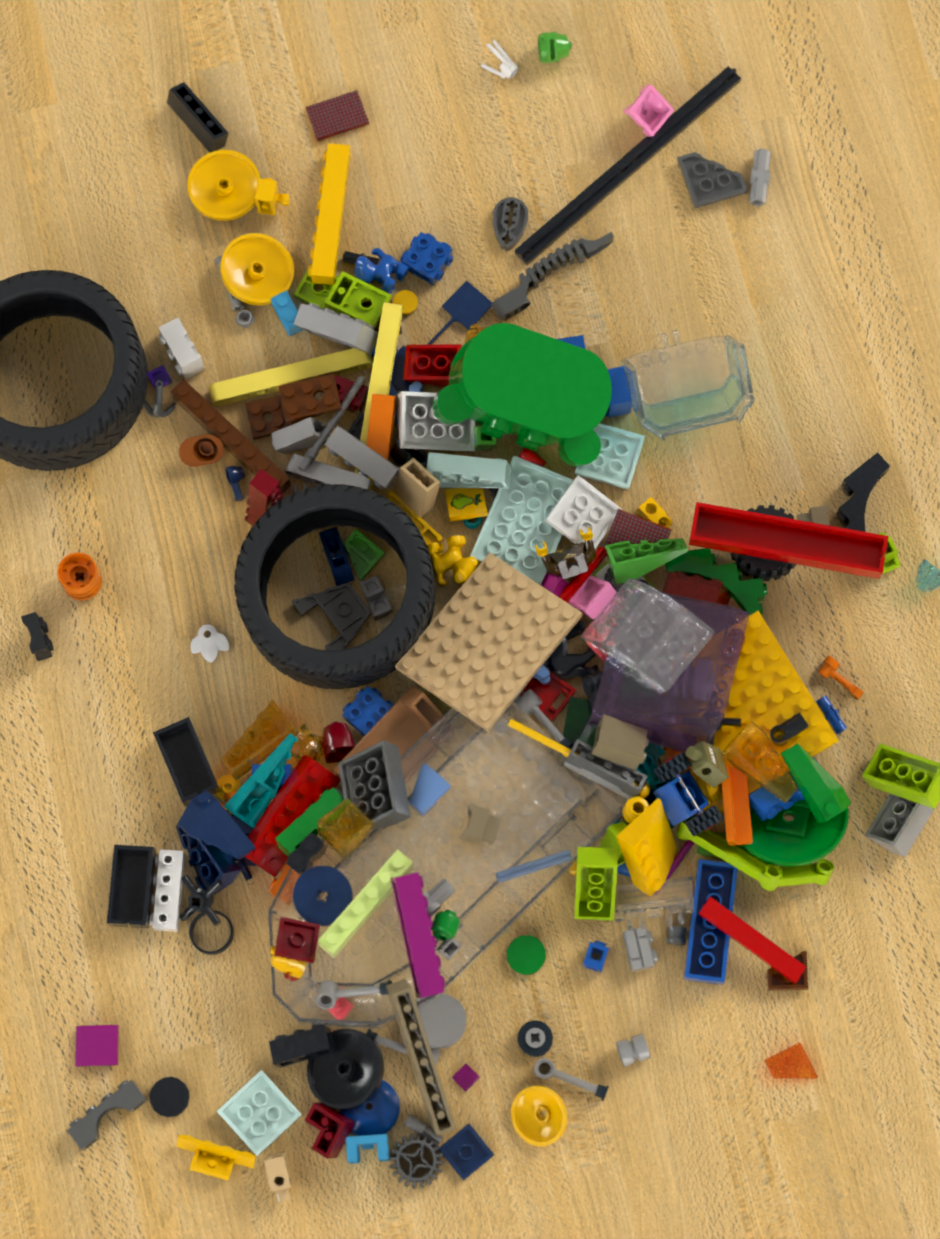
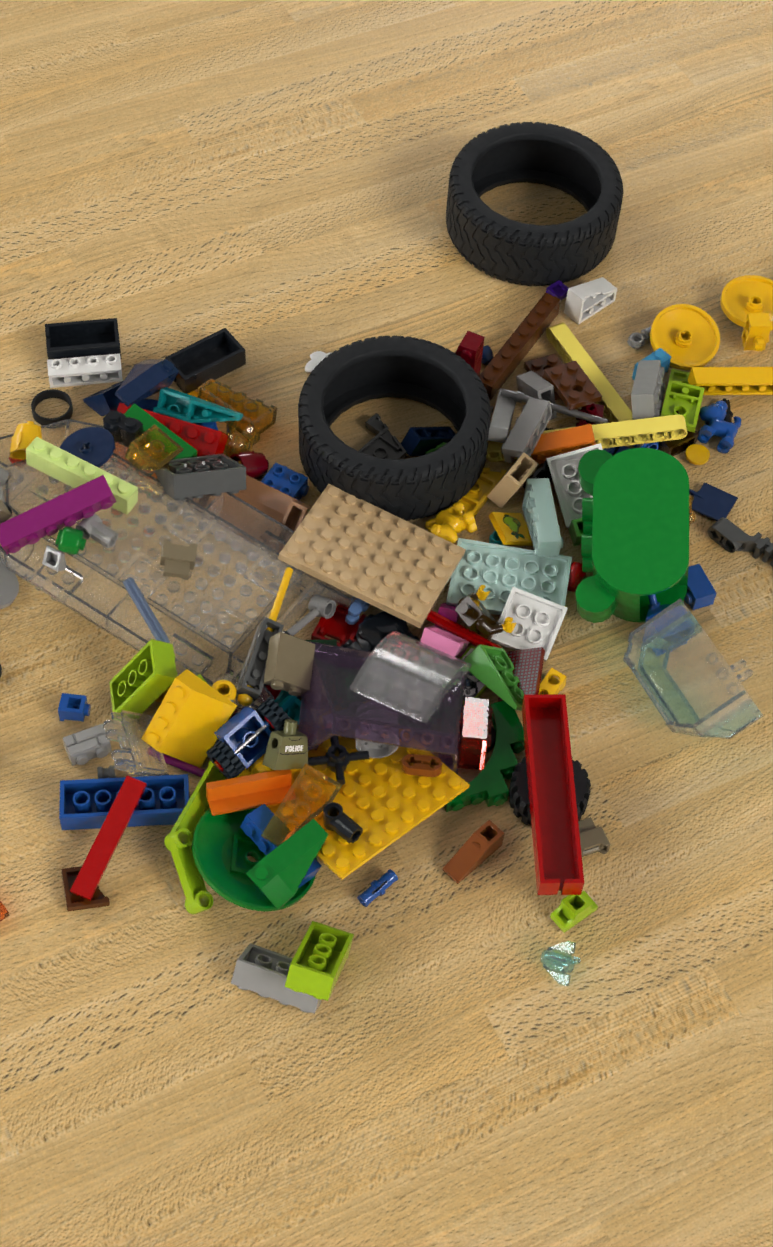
camera: 70 degrees right, 20 degrees down
(40, 642) = (295, 243): black brick -> none
(79, 566) = (357, 262): orange wheel -> none
(156, 410) = (530, 291): dark grey piece -> none
(201, 450) = (498, 324): dark orange piece -> none
(201, 900) = (78, 389): black bar -> none
(297, 940) = (38, 426): dark red plate -> none
(428, 257) = (748, 462): blue brick -> none
(428, 790) = (204, 514): medium blue slope -> none
(526, 955) = (67, 652): green tile -> none
(616, 458) = (599, 643): light aqua plate -> none
(814, 623) = (474, 851): none -> dark orange slope
(829, 669) = (426, 878): orange brick -> none
(859, 486) = (641, 876): black arch -> none

